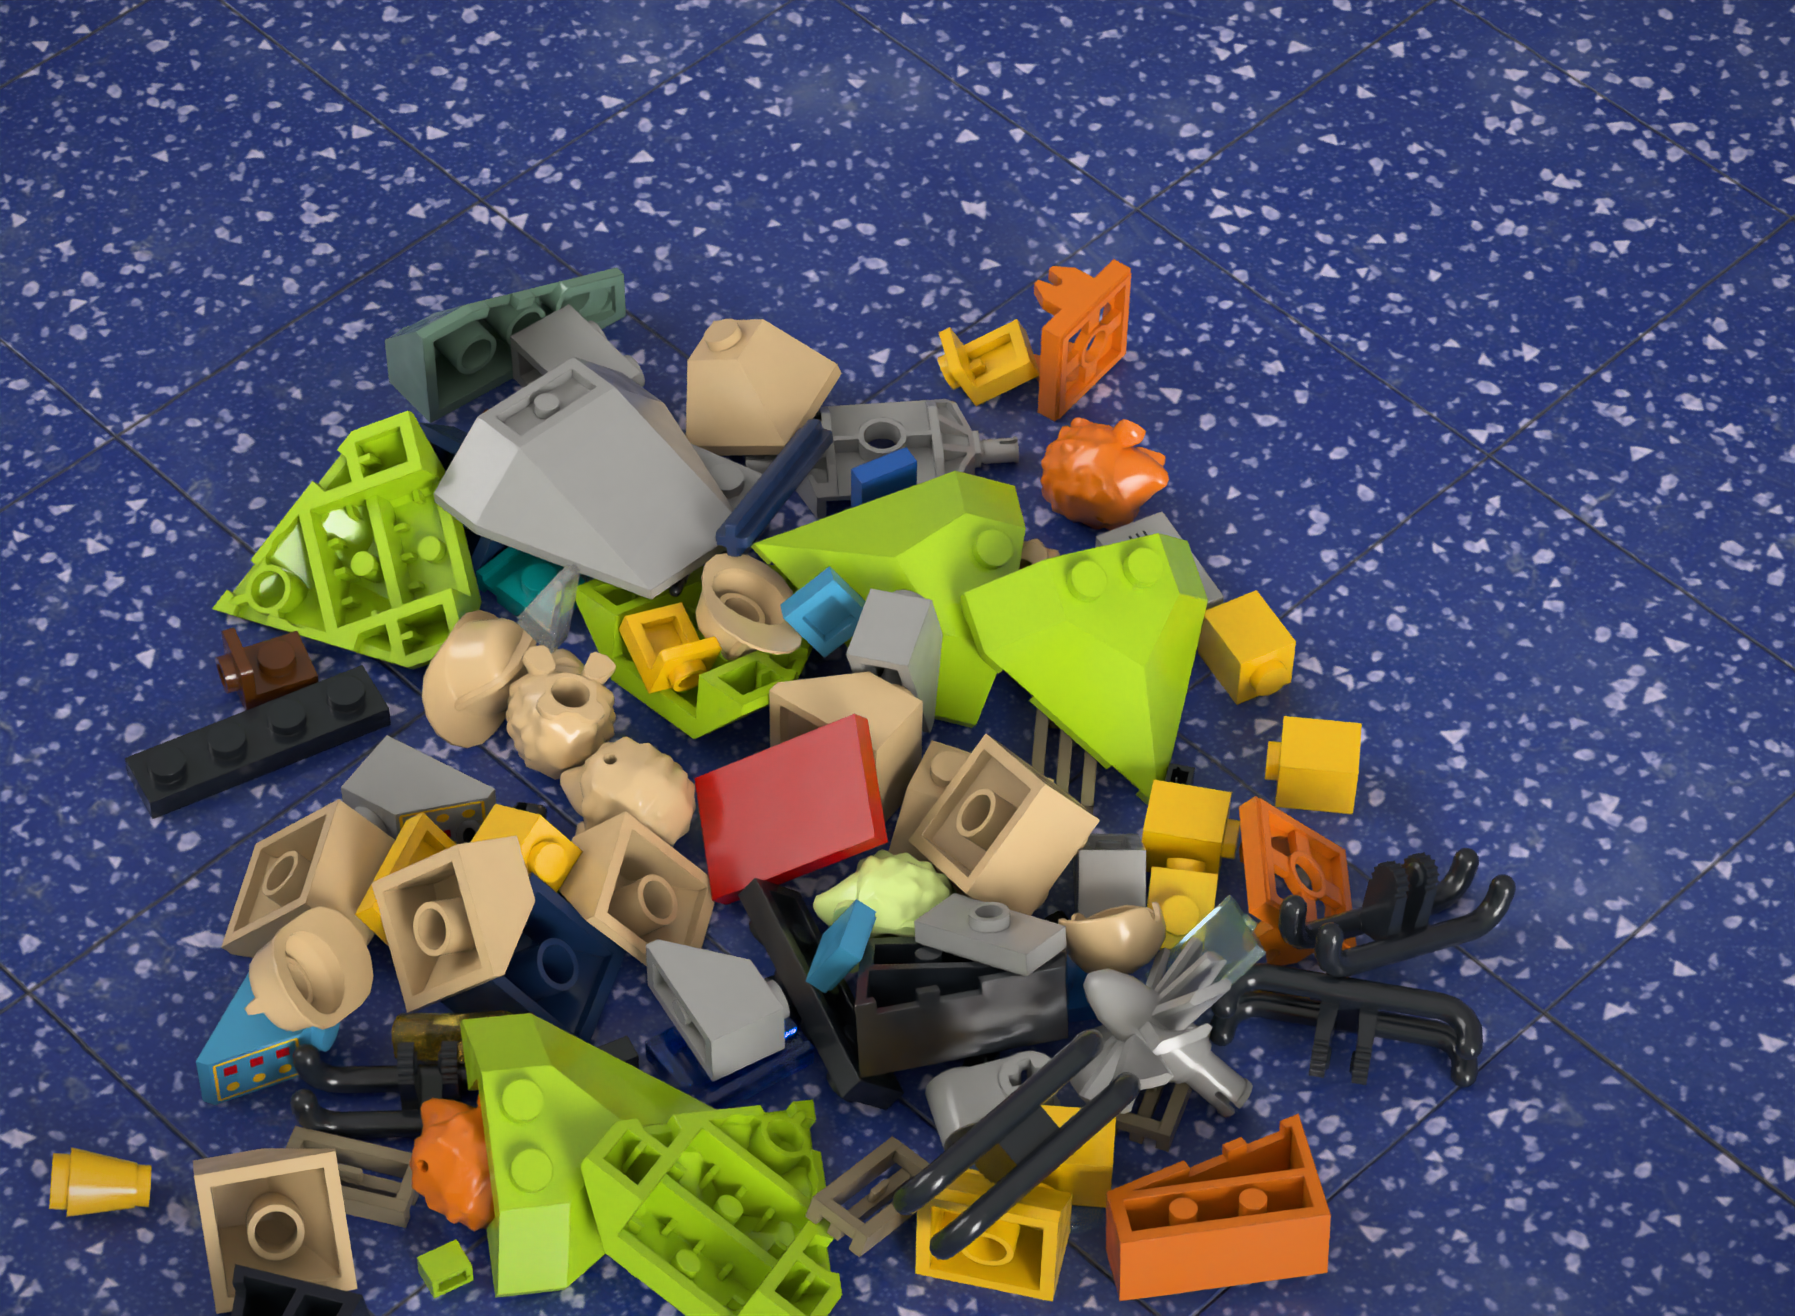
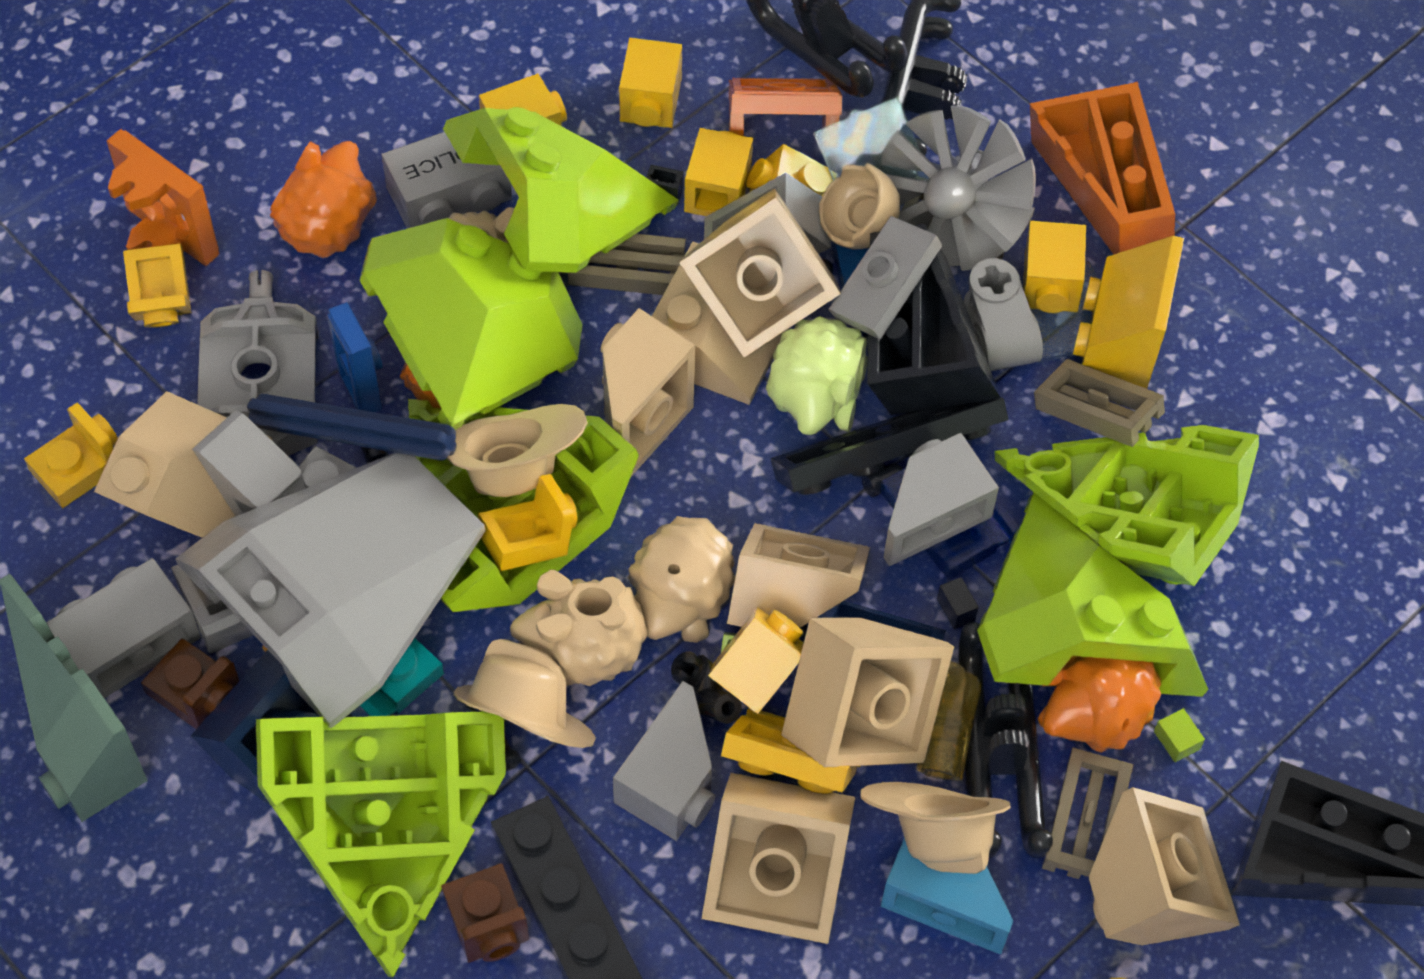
camera: 90 degrees left, 10 degrees up
(550, 613) = (483, 616): clear slope -> none
(738, 419) = (245, 464): none -> light grey slope
(791, 808) = (727, 432): tile -> none
(800, 321) = (75, 458): none -> yellow bracket
(824, 611) = (524, 380): dark azure plate -> none
(841, 946) = (879, 397): dark azure tile -> none
(900, 643) = (569, 331): light grey slope -> none
(1017, 1145) = (1128, 245): black piece -> none

